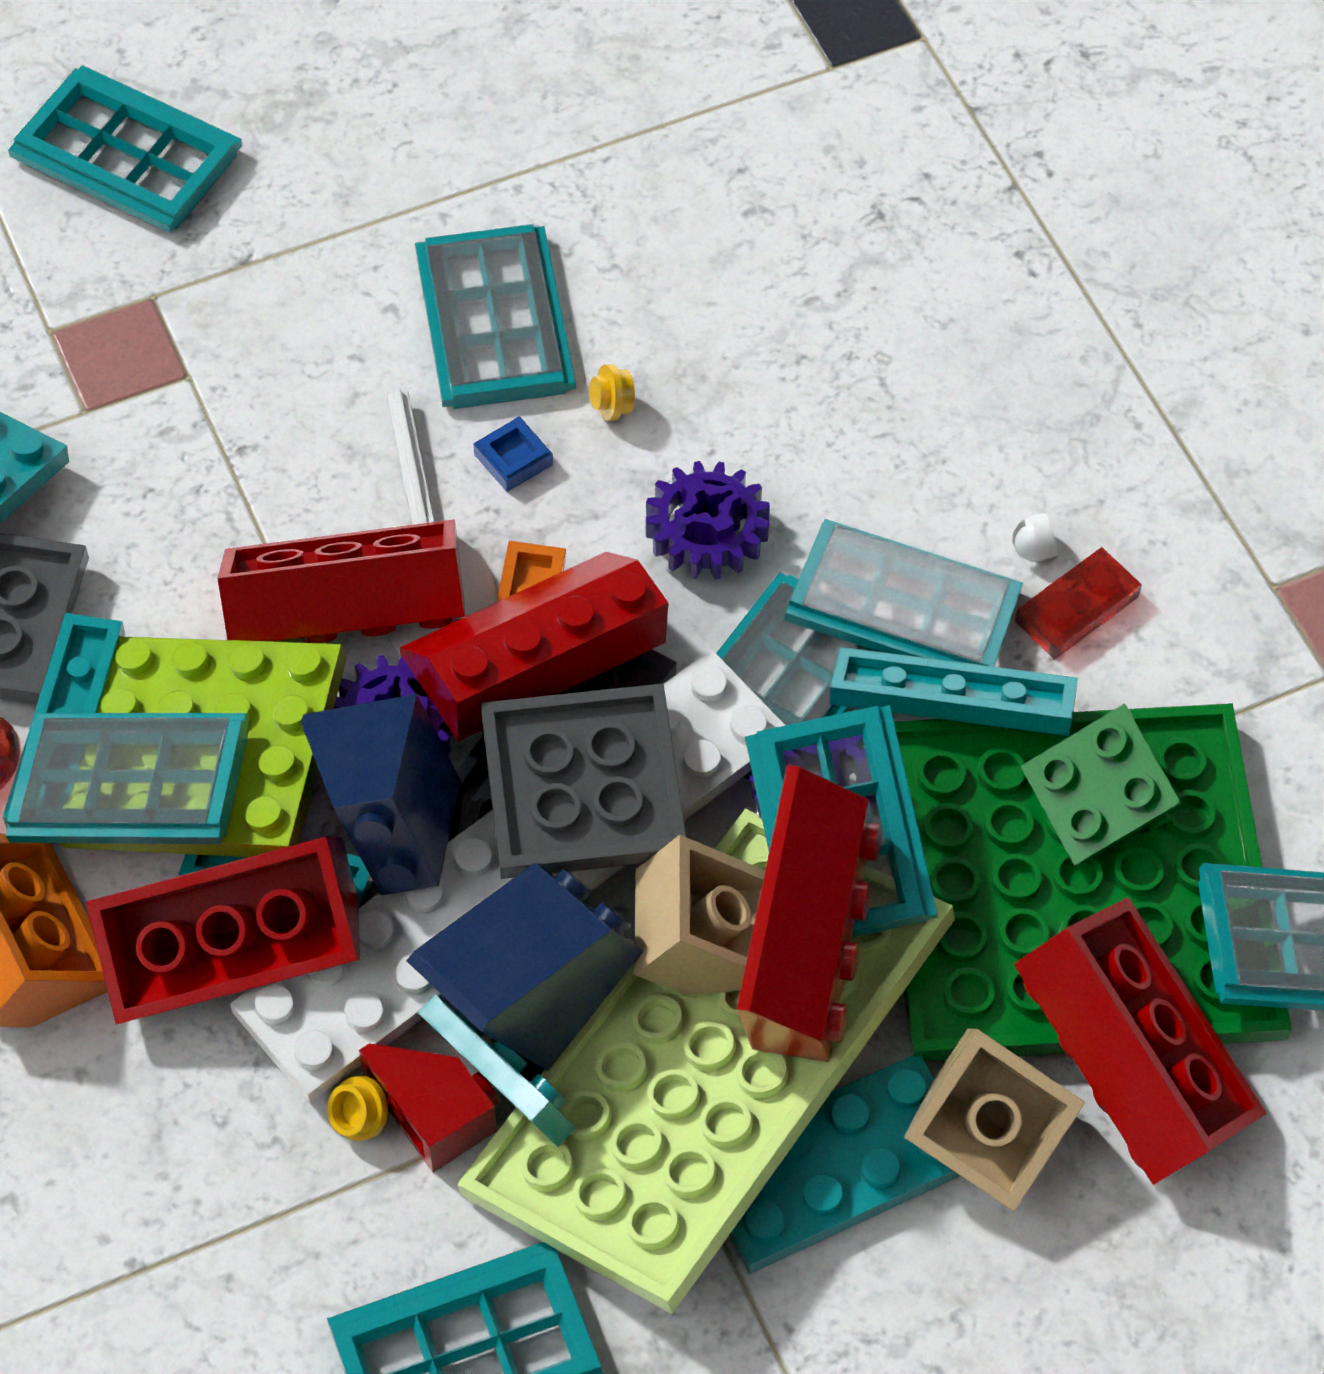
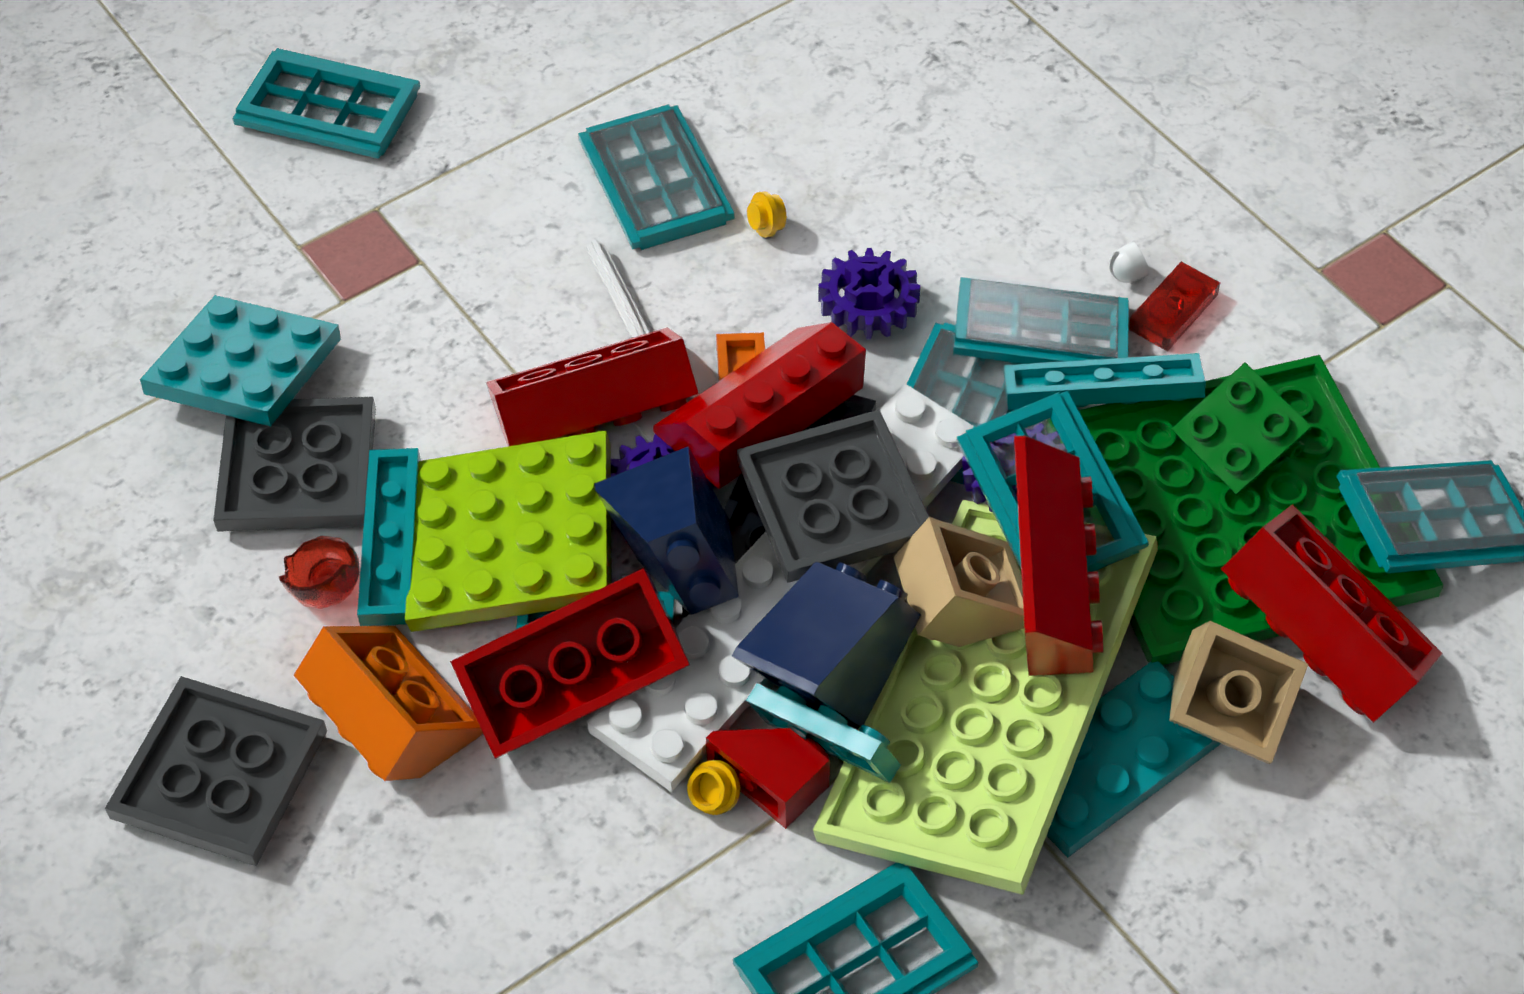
camera: 10 degrees left, 5 degrees down
(128, 778) = (458, 562): clear piece -> none
(513, 454) = (698, 273): blue tile -> none

